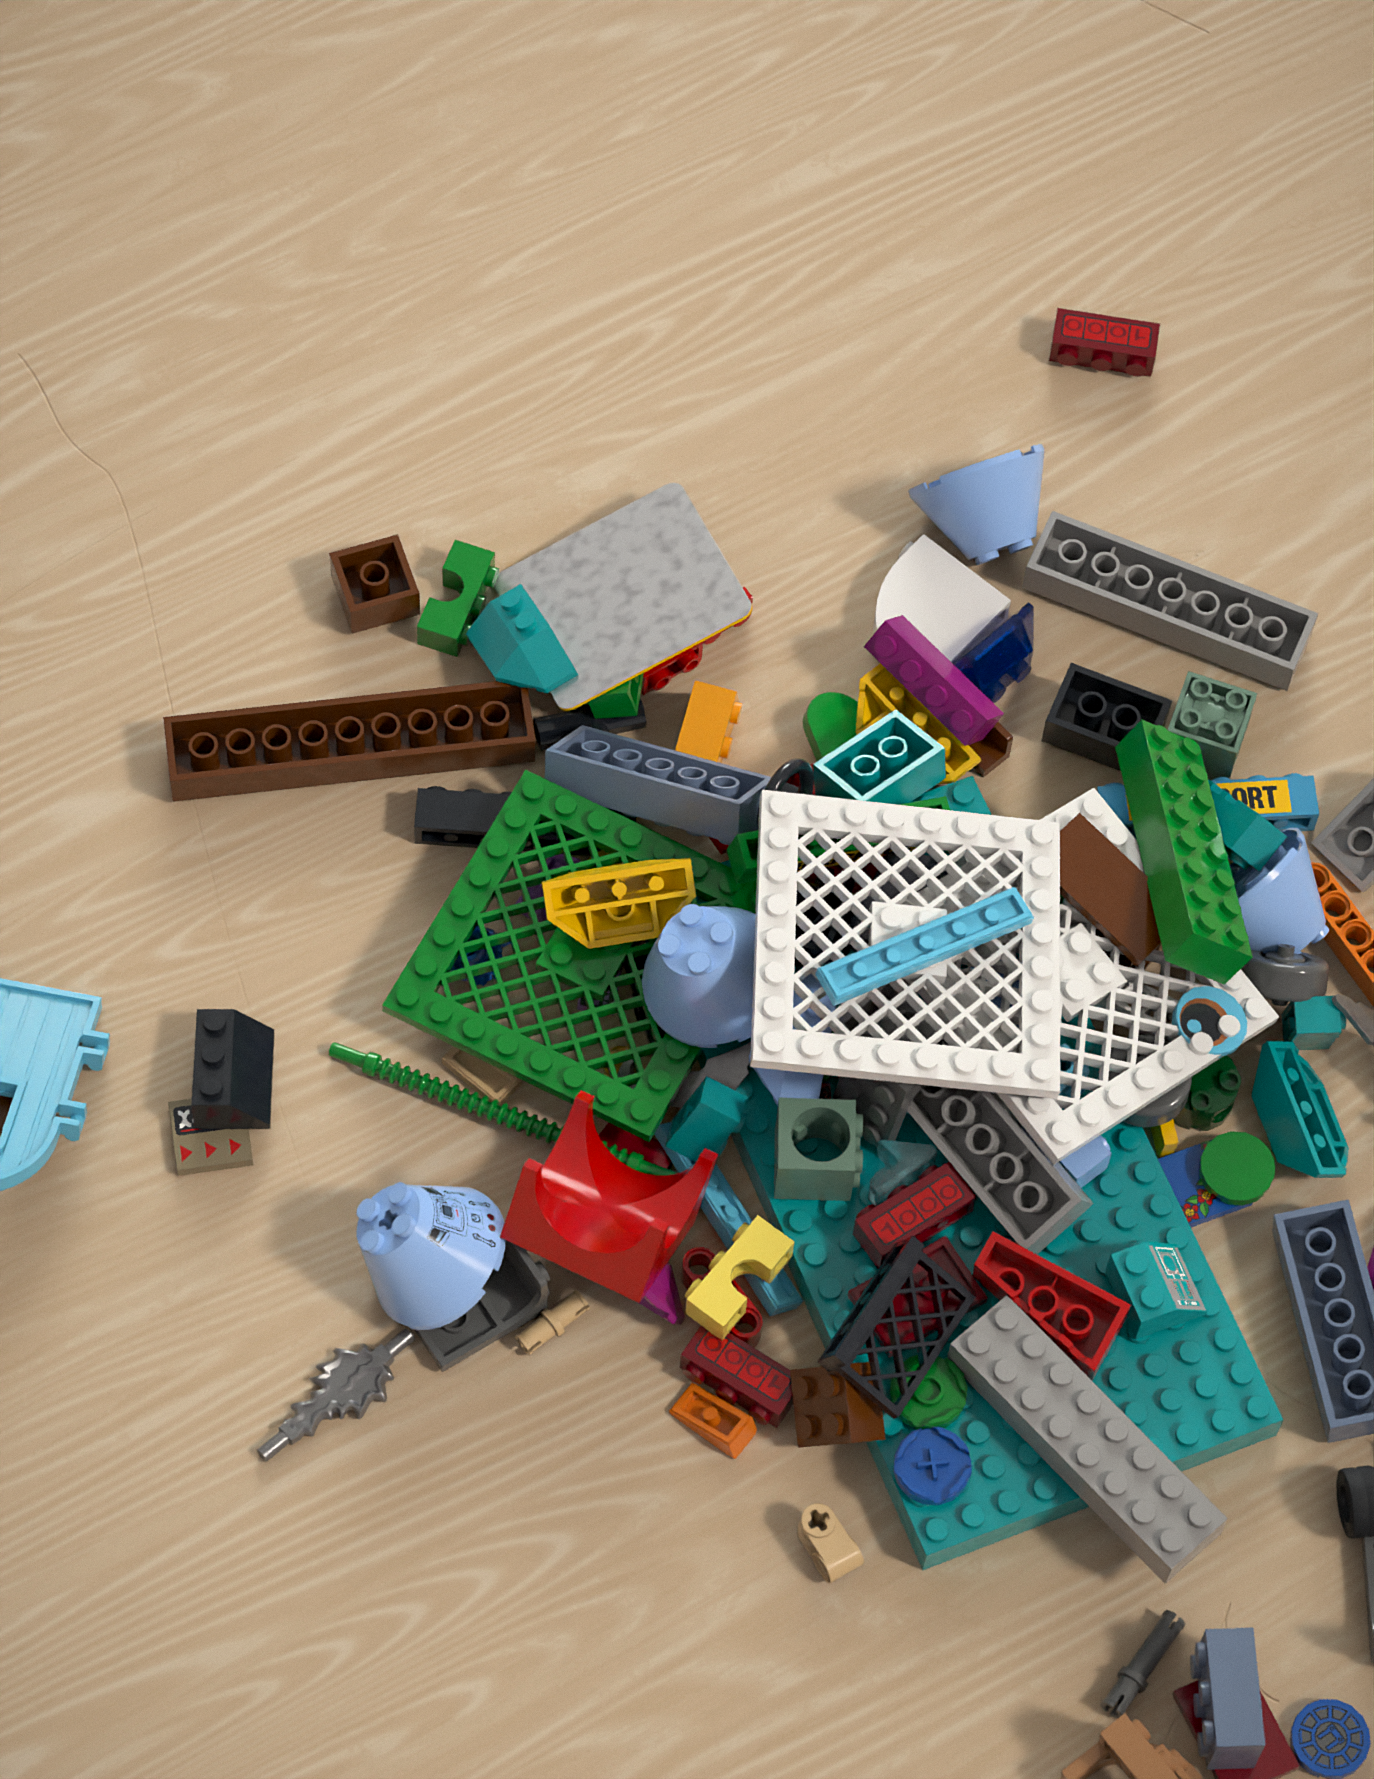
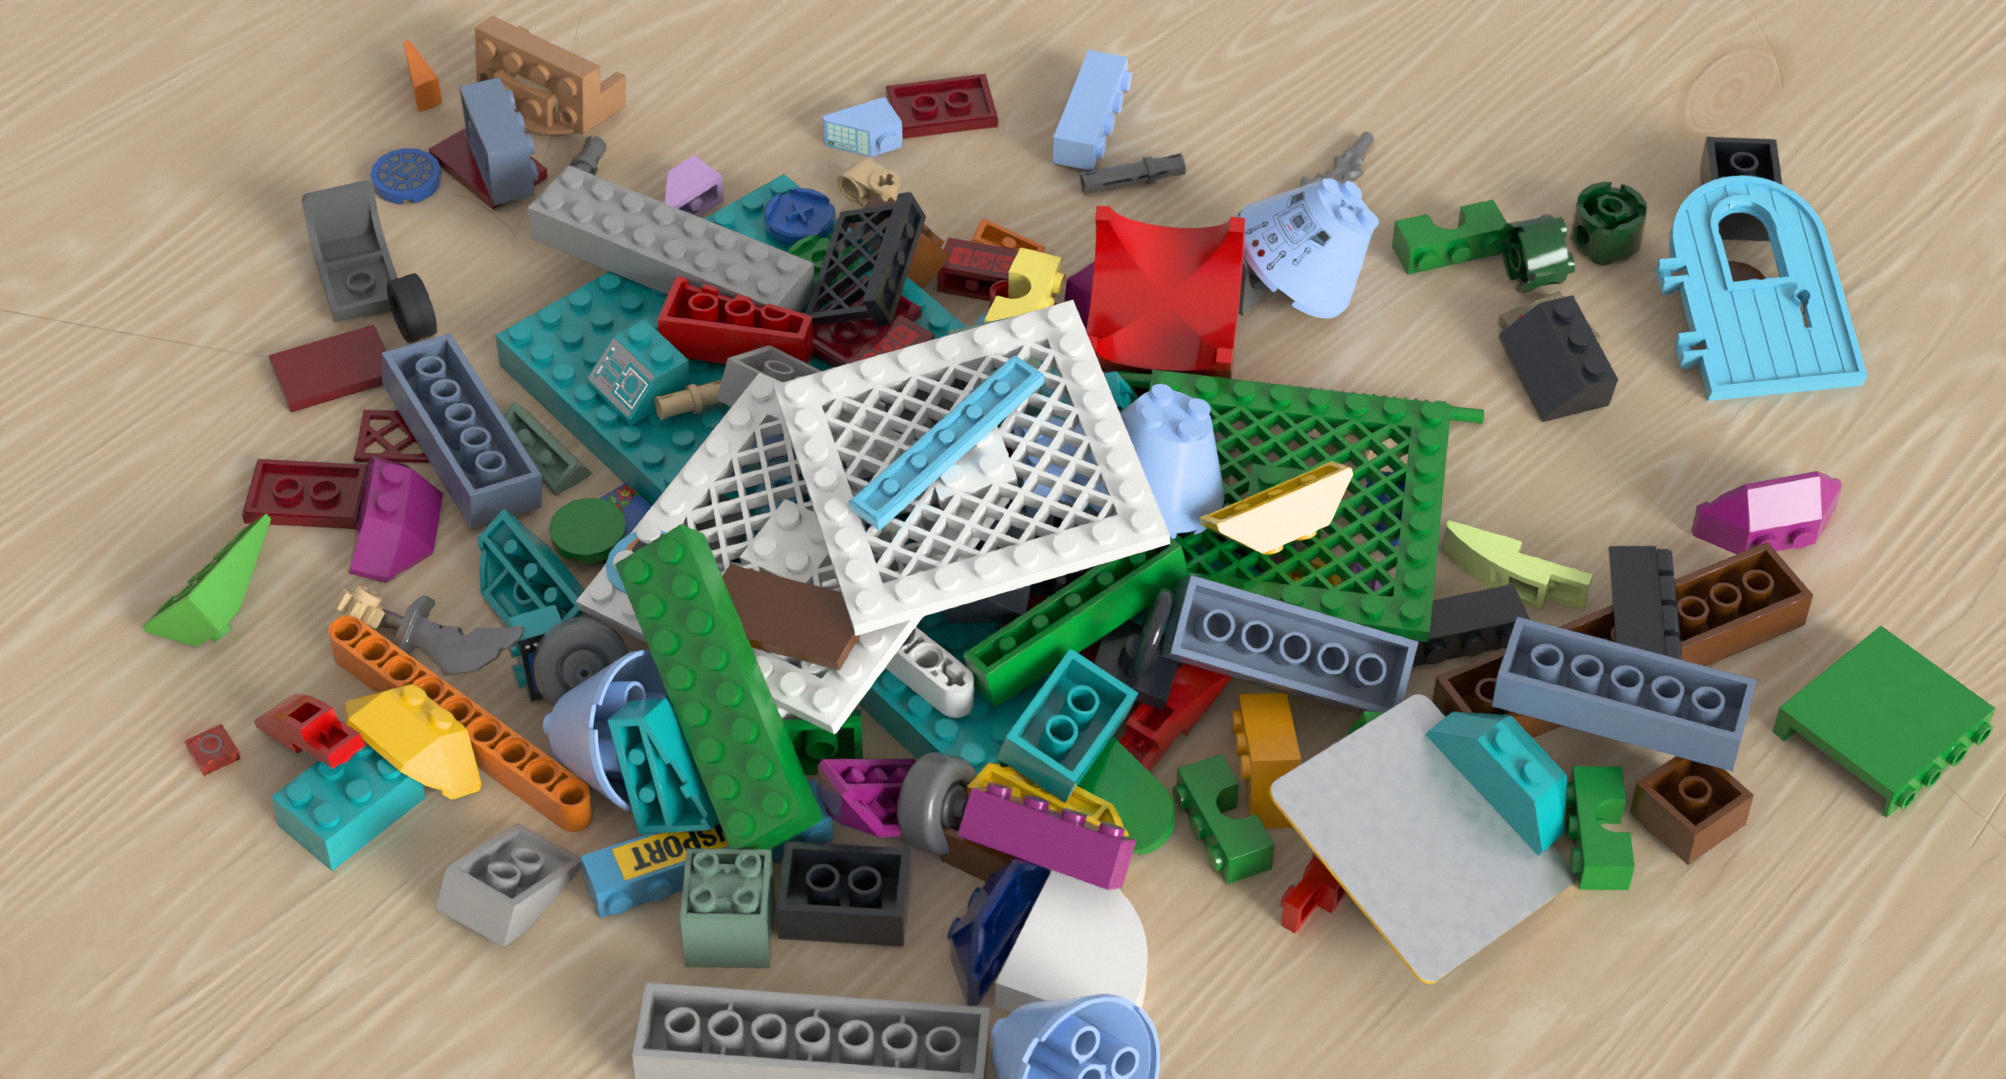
camera: 165 degrees right, 15 degrees down
(84, 1226) = (1608, 222): none -> dark green brick
(131, 838) = (1777, 511): none -> magenta wedge
(163, 617) = (1888, 717): none -> green panel
(183, 1199) = (1537, 252): none -> dark green brick
(220, 1263) = (1426, 246): none -> green arch
(328, 743) = (1645, 599): none -> black windscreen
(398, 644) = (1624, 693): none -> sand blue brick
(403, 867) = (1498, 562): none -> yellowish green slope
(540, 1475) = (1123, 175): none -> dark grey pin
(552, 1570) = (1091, 110): none -> light blue brick
(707, 1658) = (943, 105): none -> dark red tile
(768, 729) = (1233, 845): none -> green arch
(807, 1632) = (864, 129): none -> light blue slope
(1007, 760) = (933, 799): none -> dark grey wheel
(1026, 1597) = (694, 187): none -> lavender slope
(1059, 774) = (863, 792): none -> magenta wedge
(1105, 1242) = (691, 399): none -> tan pin
(1256, 1304) = (553, 460): none -> sand green slope

